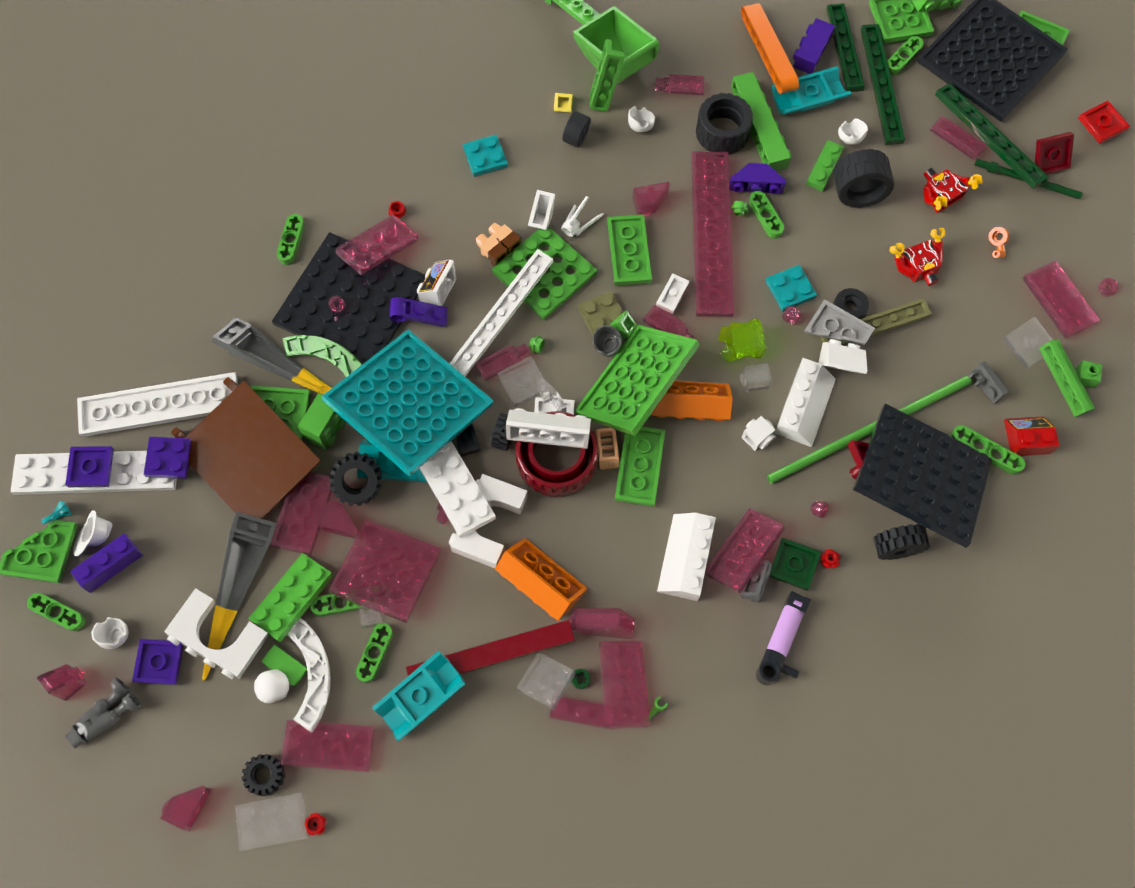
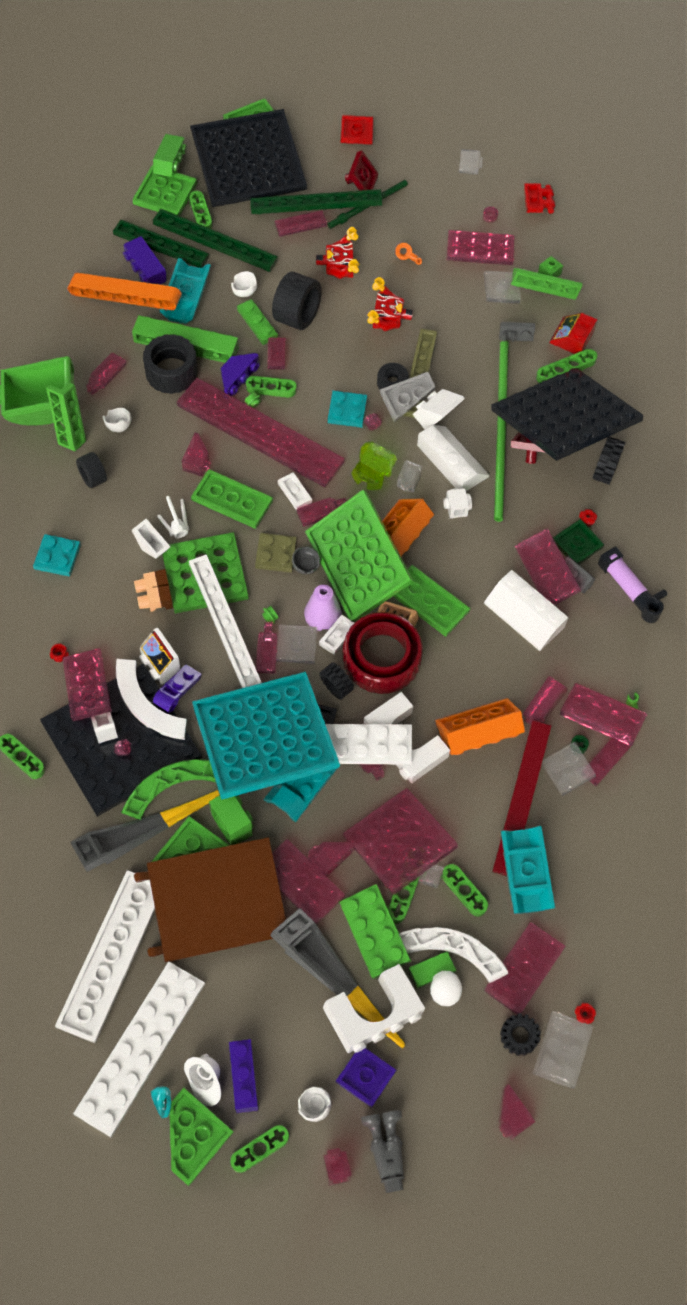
camera: 60 degrees left, 5 degrees down
(89, 466) = (139, 1044): dark purple plate -> none
(167, 457) = (175, 970): dark purple plate -> none
(345, 278) = (104, 727): none -> white slope
(351, 495) = (318, 818): black tyre -> none
(384, 292) = (141, 707): none -> white tile
(548, 428) = (366, 638): white slope -> none
(549, 394) = (324, 627): clear slope -> none
(563, 102) = (52, 467): light yellow slope -> none
(570, 381) = (322, 608): none -> lavender cone
(624, 324) = (298, 539): bright green slope -> none
(802, 198) = (276, 354): none -> clear pink plate
(819, 508) = (543, 501): clear pink hinge -> none

